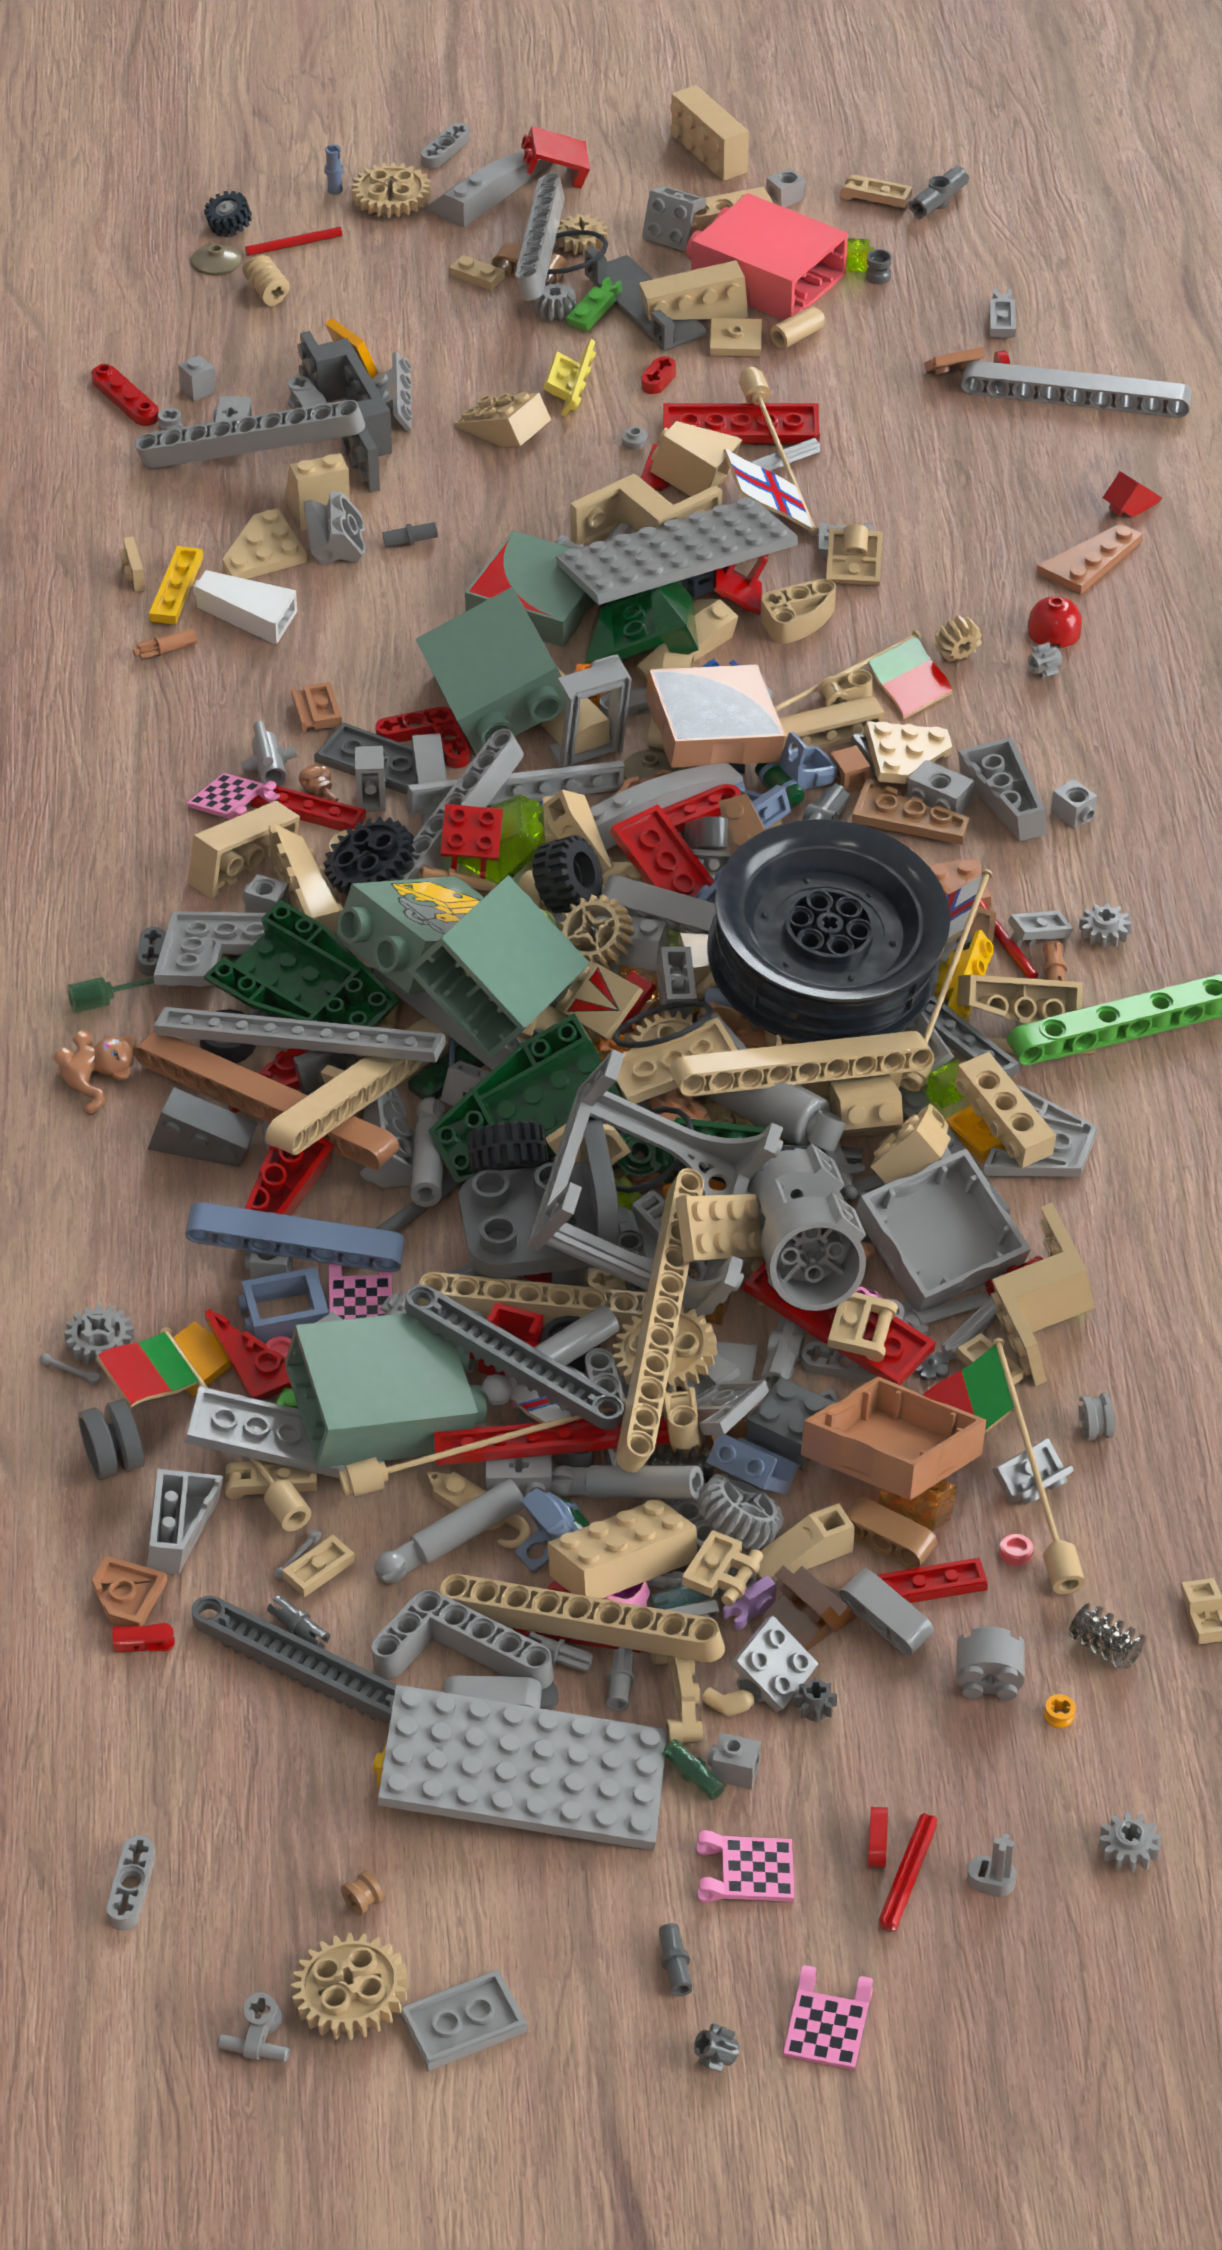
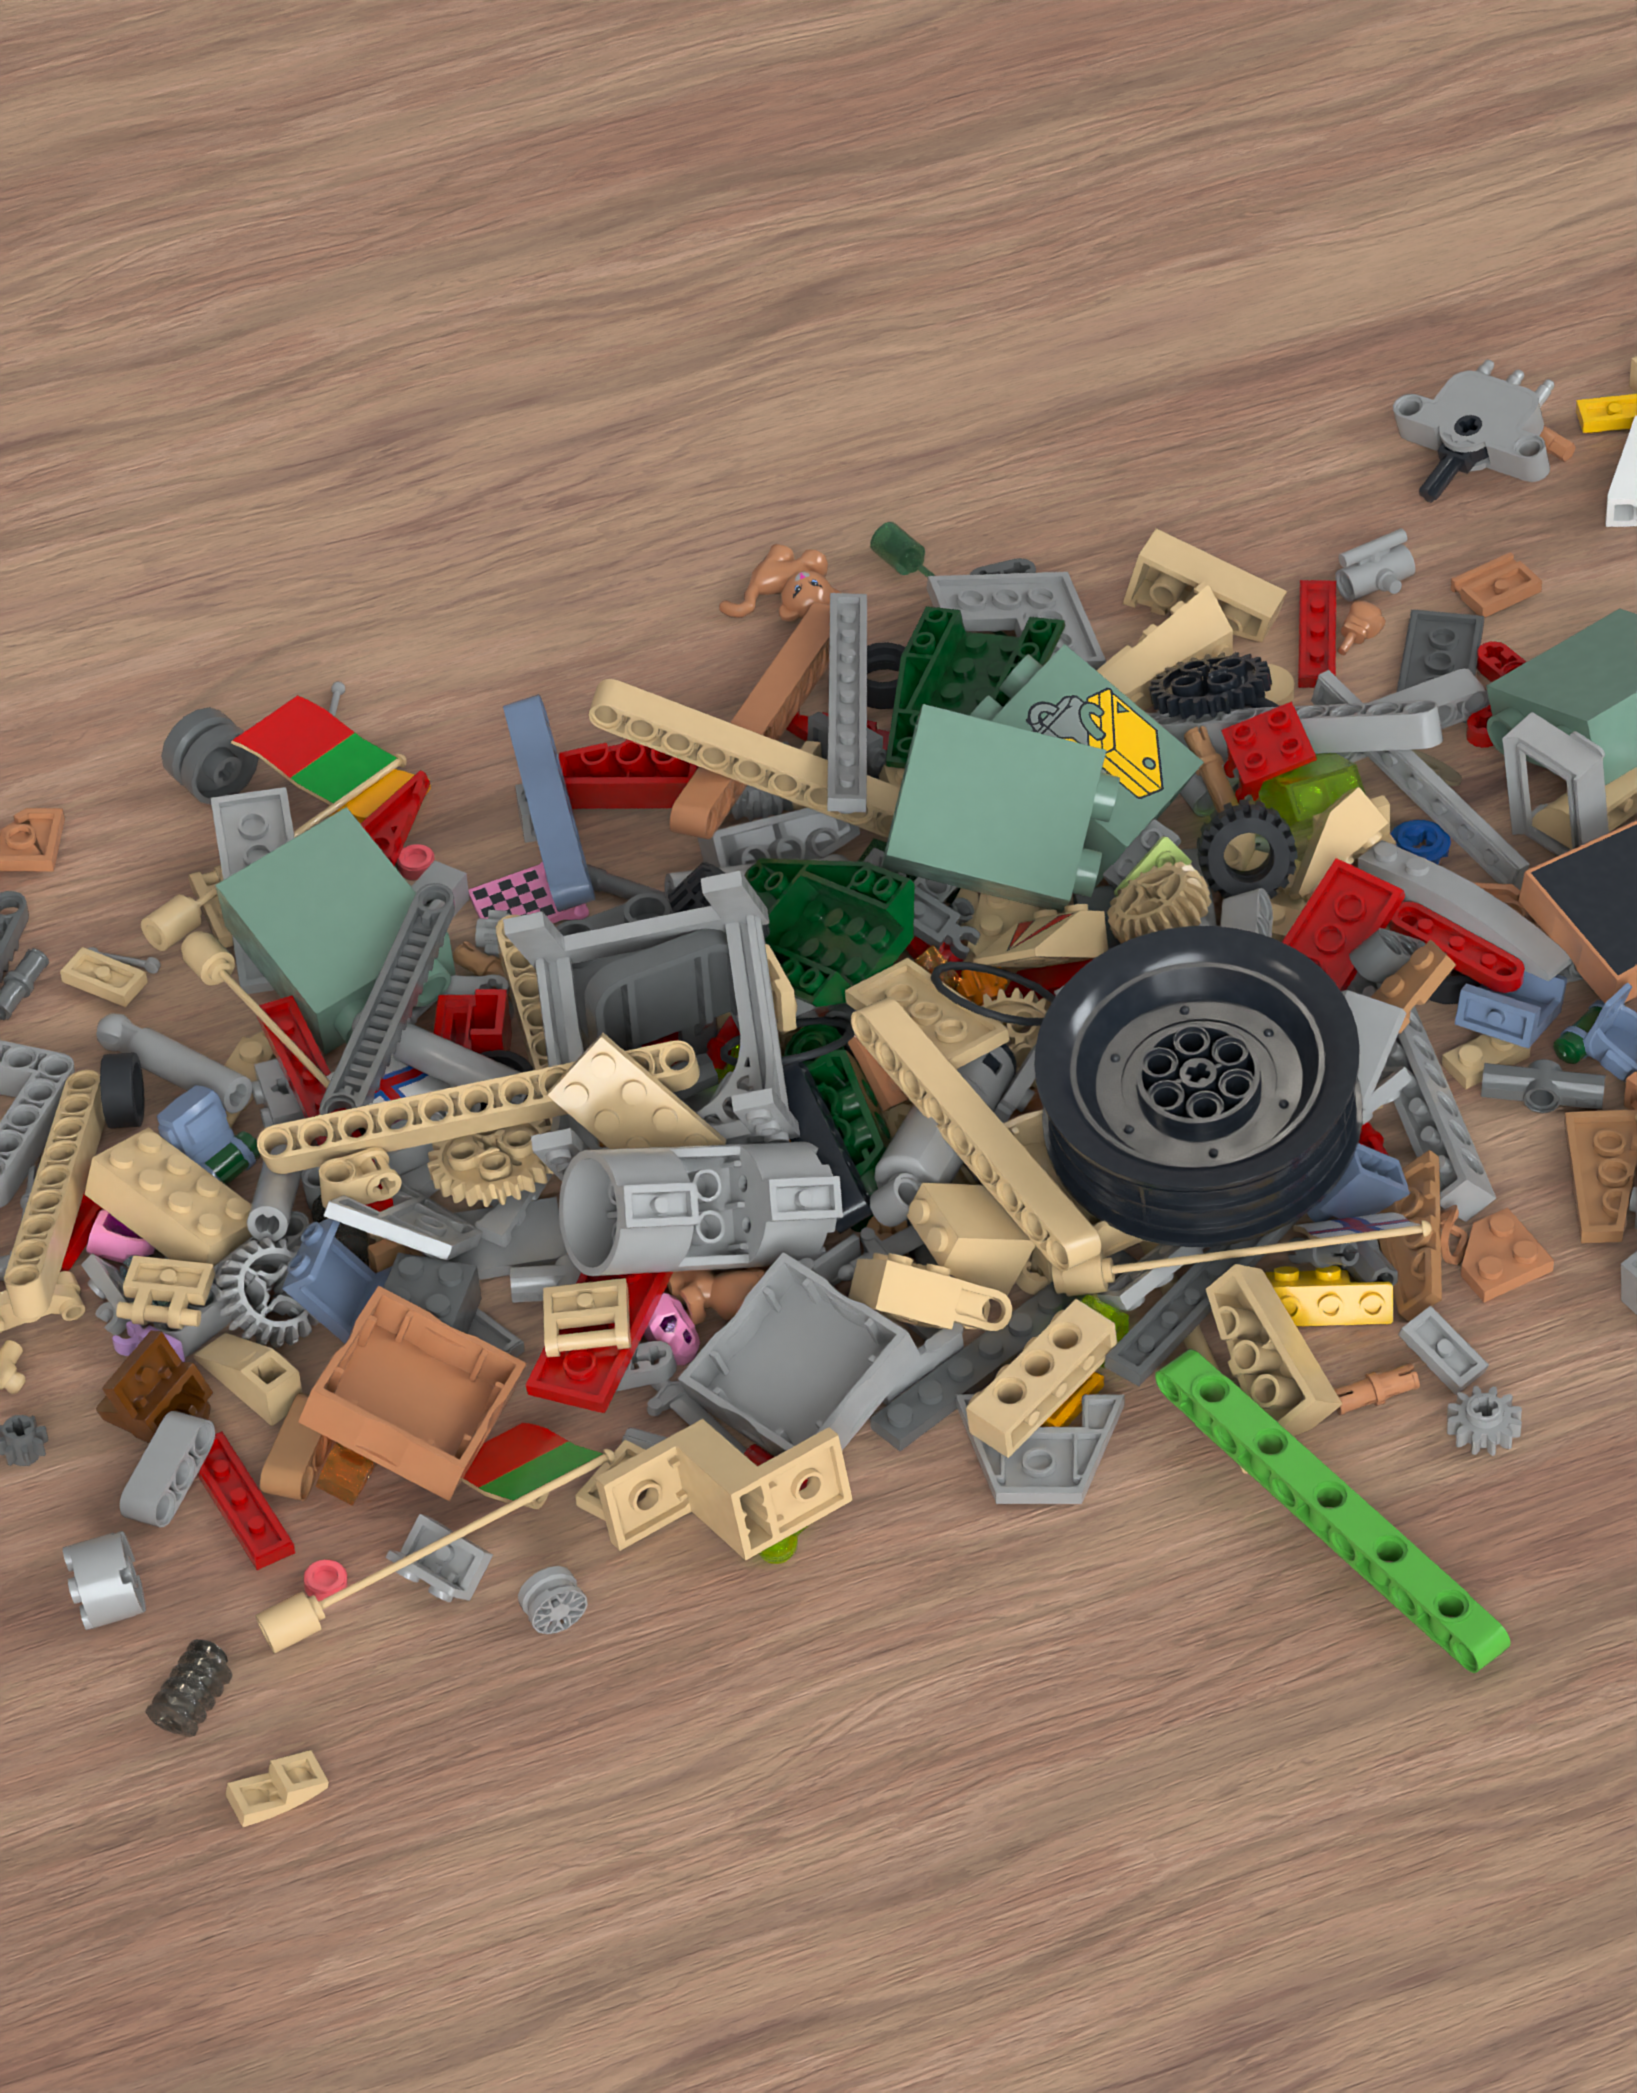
camera: 75 degrees right, 0 degrees up
(97, 1332) = (379, 711): light grey gear -> none
(156, 662) = (1478, 426): none -> light grey piece
(179, 1516) = (122, 843): light grey wedge -> none
(201, 1130) = (711, 675): dark grey wedge -> none
(230, 794) = (1295, 560): bright pink flag -> none
(264, 894) = (1127, 629): light grey brick -> none
(277, 1287) = (506, 855): sand blue window -> none
(370, 778) = (1369, 655): light grey brick -> none
(473, 1551) = (122, 1090): none -> black tyre
(773, 1665) = (59, 1385): light grey plate -> none
(934, 1366) = (604, 1430): dark grey plant -> none
(1012, 949) = (1396, 1343): red bar -> none
(1059, 1719) = (74, 1665): light orange bush -> none

